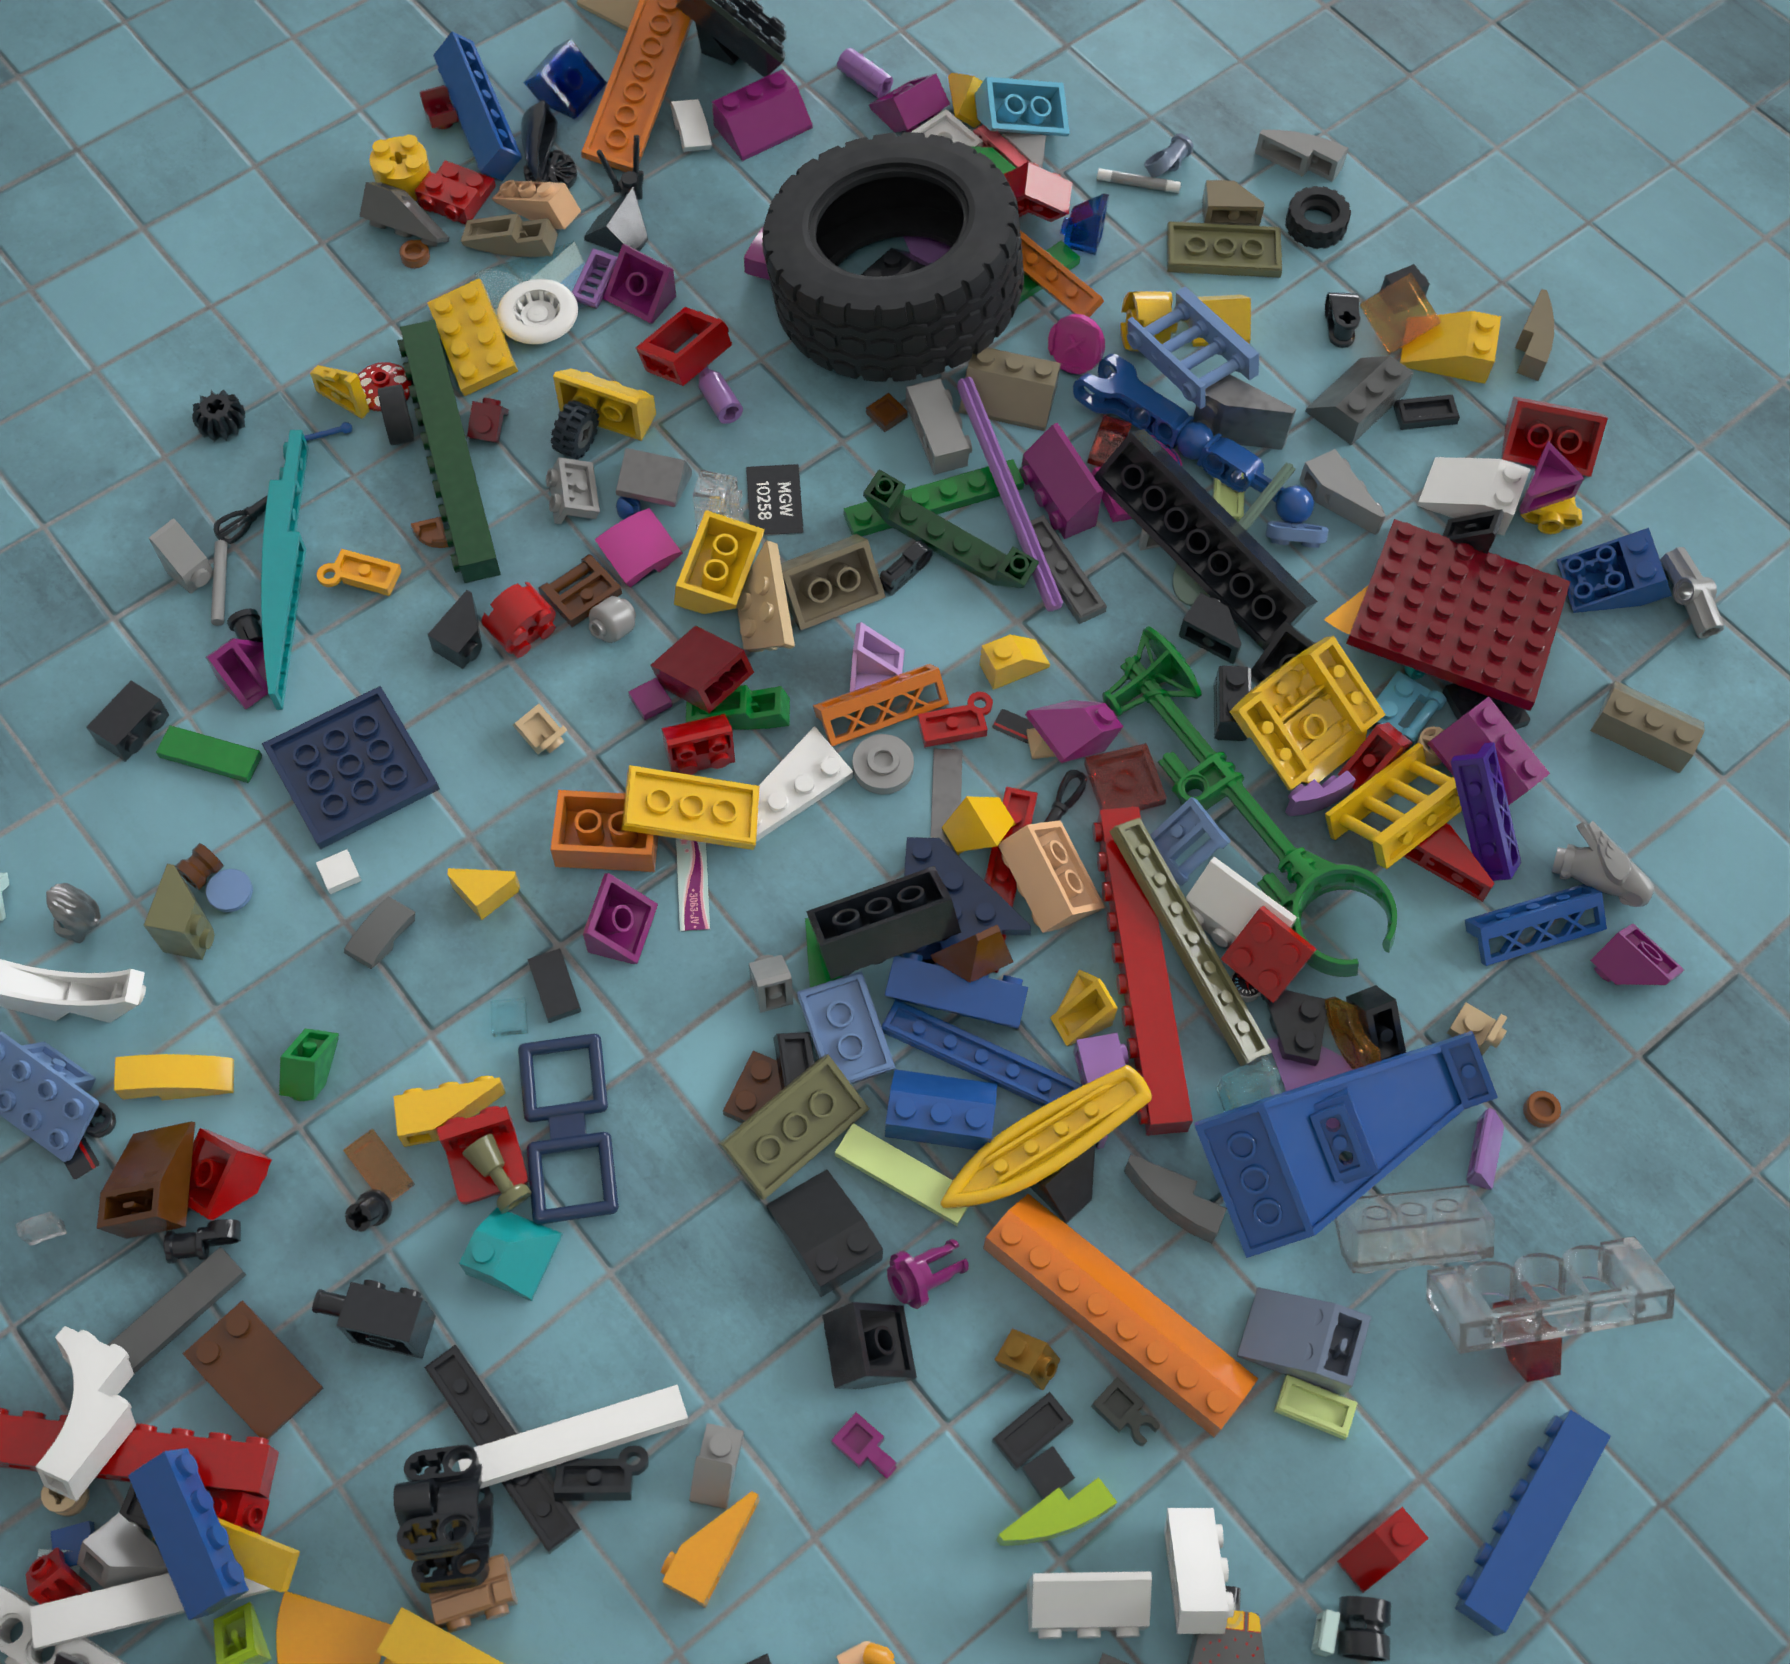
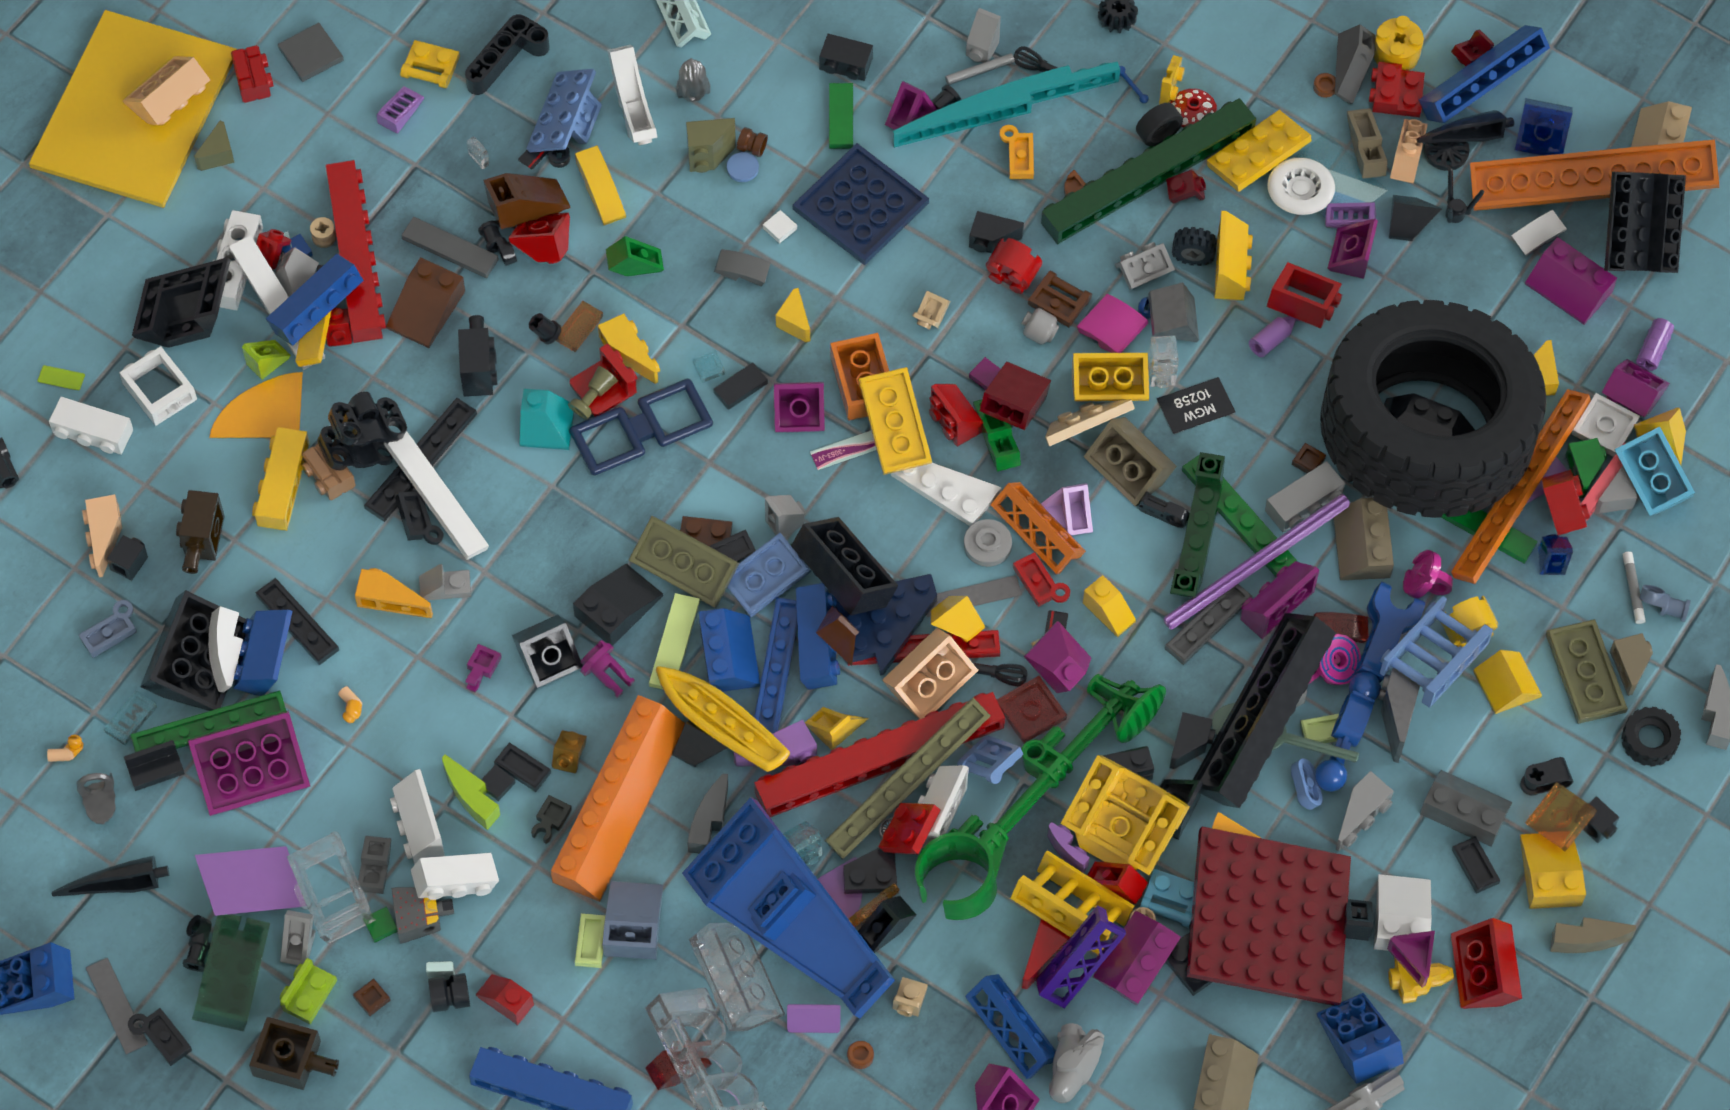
camera: 75 degrees right, 0 degrees up
(97, 1417) = (366, 225): white arch -> none

